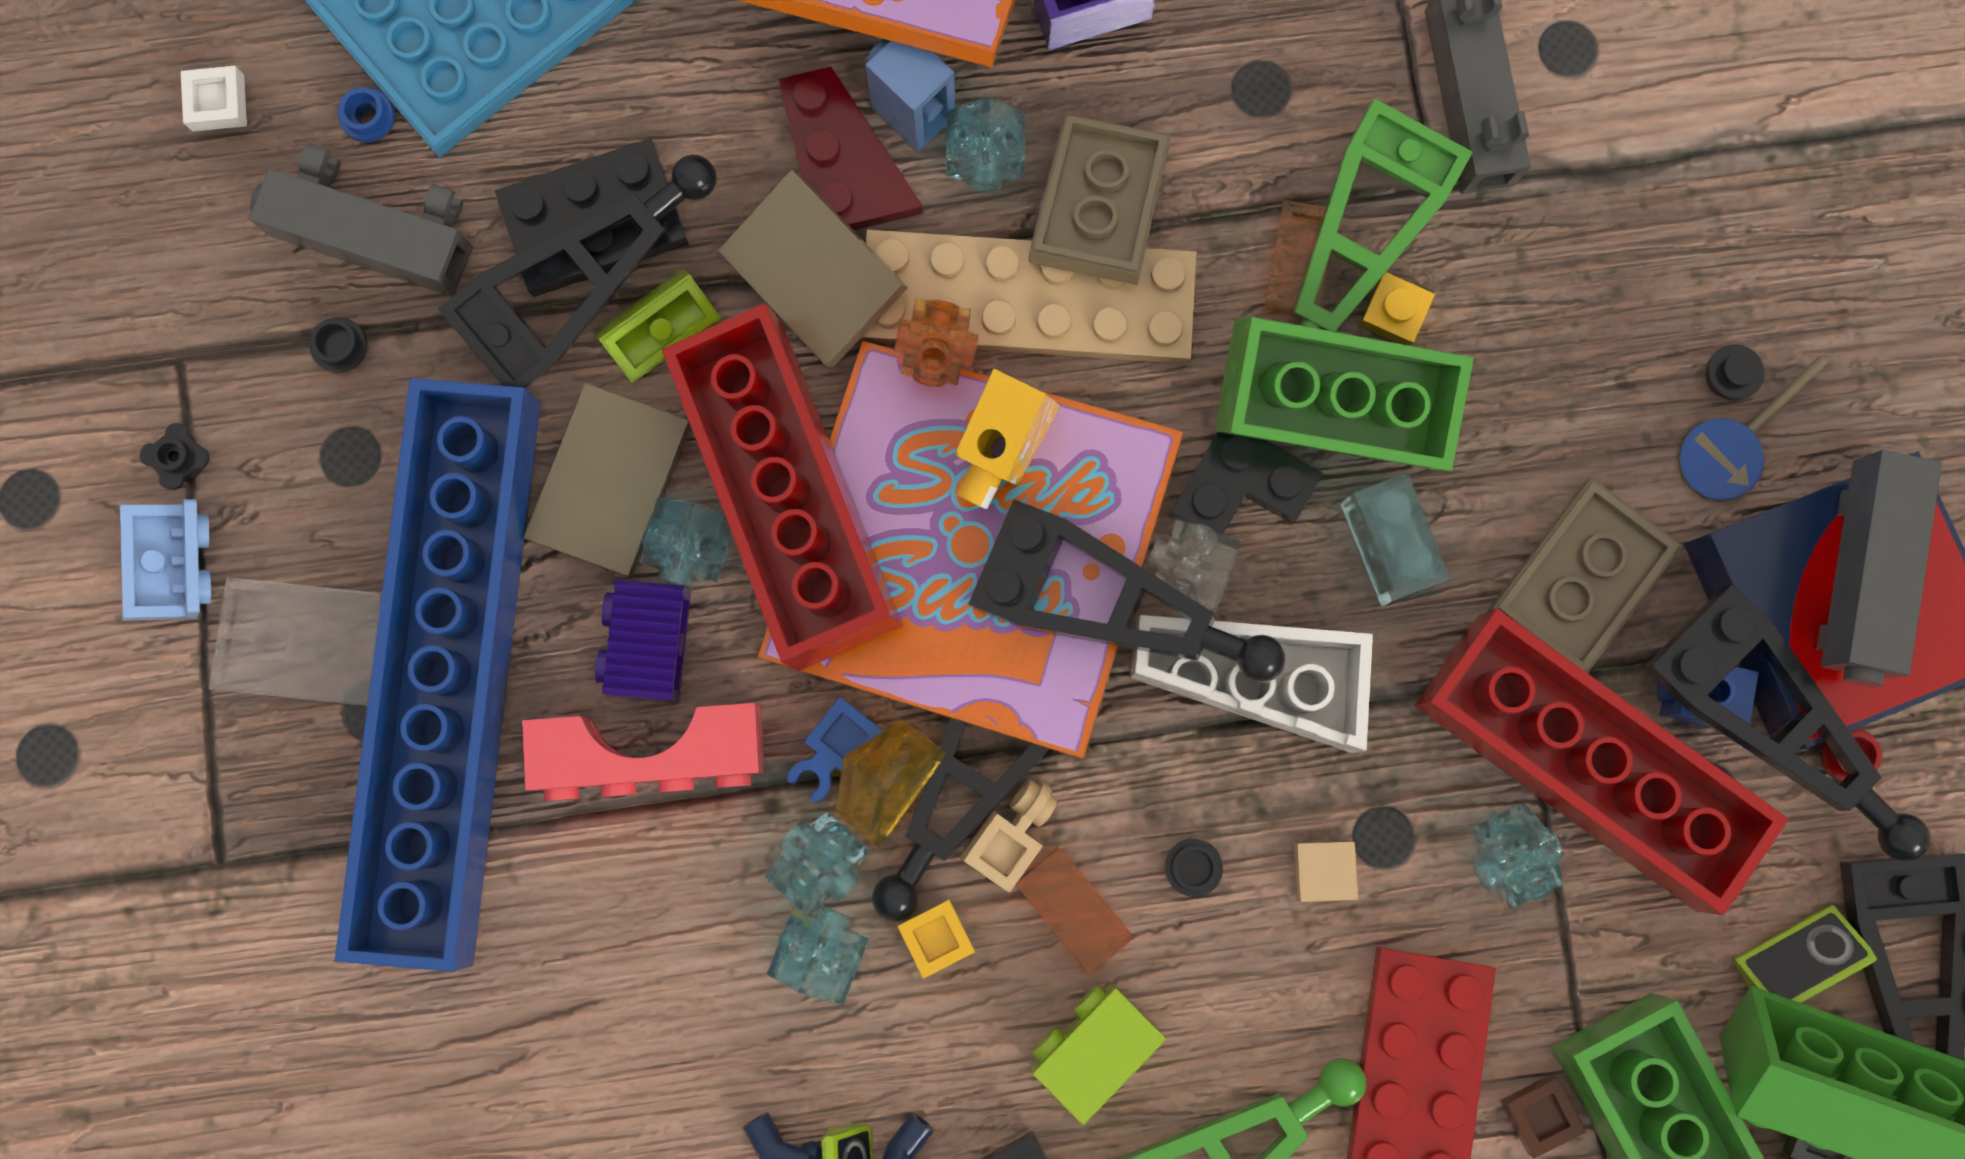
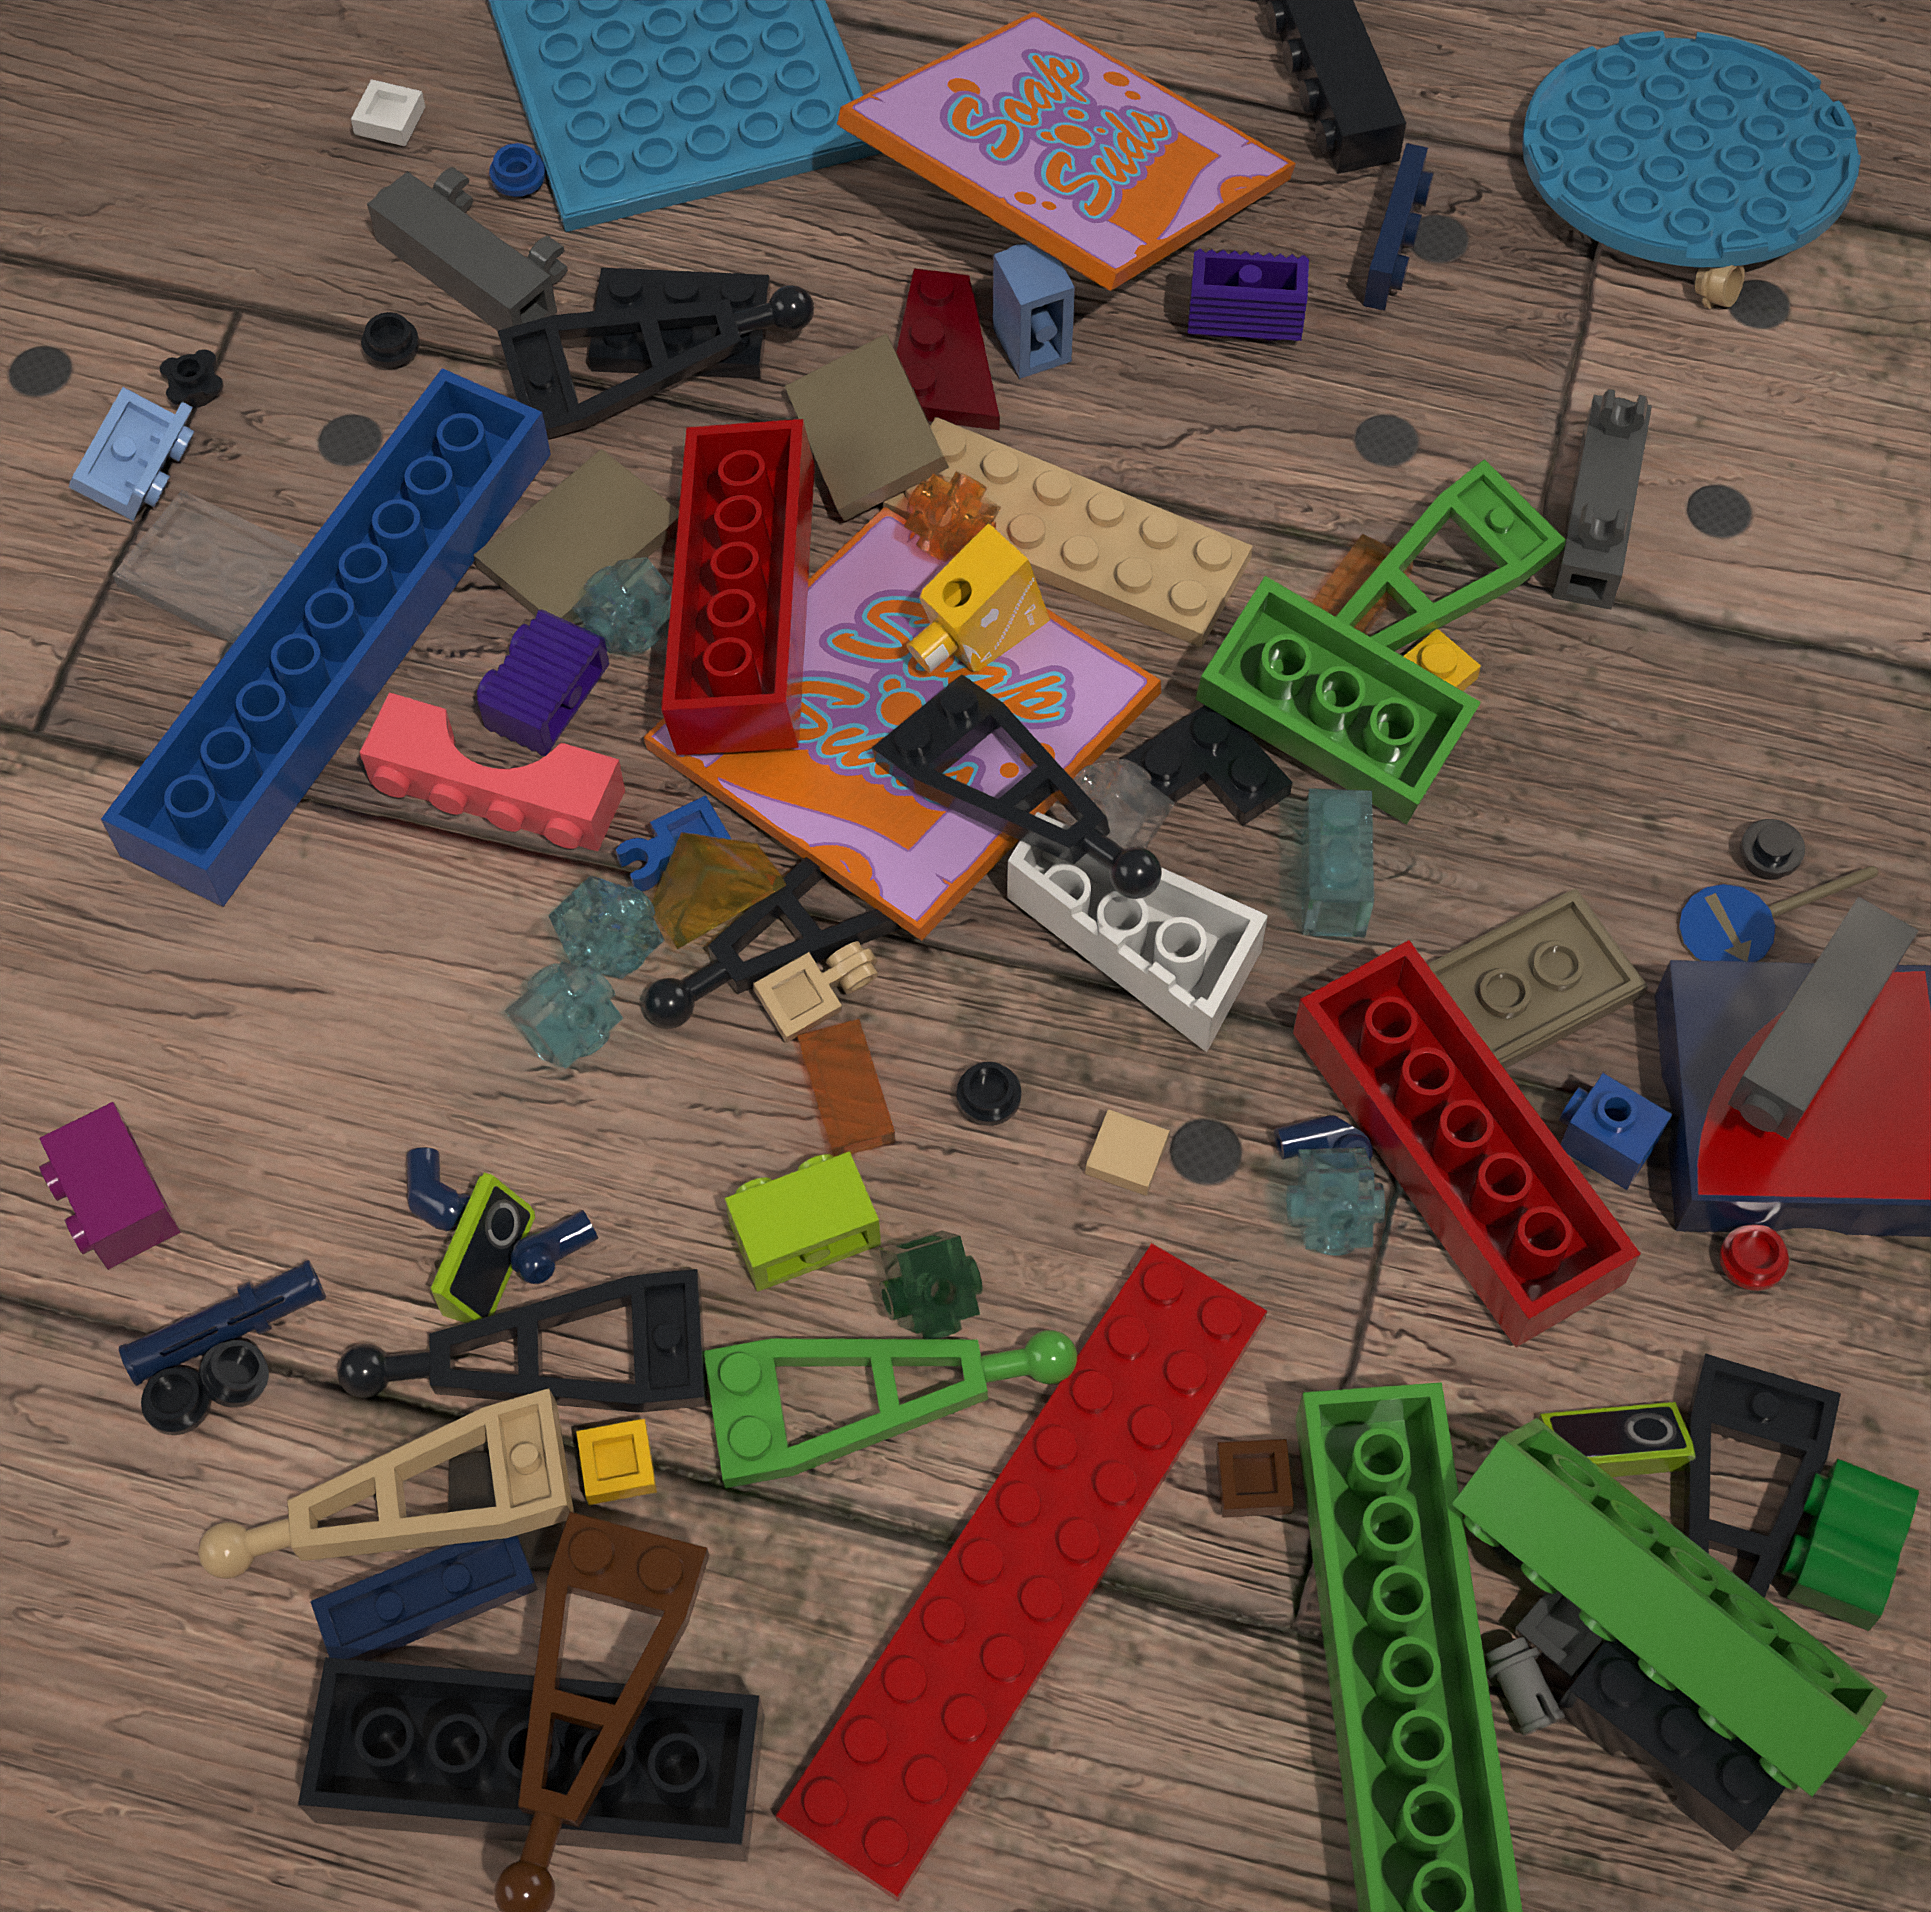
camera: 25 degrees right, 20 degrees down
(657, 321) = (663, 430): lime slope -> none
(936, 938) = (691, 1053): yellow plate -> none
(985, 144) = (1084, 380): clear light blue brick -> none
(1100, 199) = (1176, 466): dark tan tile -> none
(1238, 1076) = (930, 1284): none -> clear green brick
(1480, 790) = (1319, 1133): none -> dark blue arm
(1712, 647) = (1638, 1054): black plate -> none

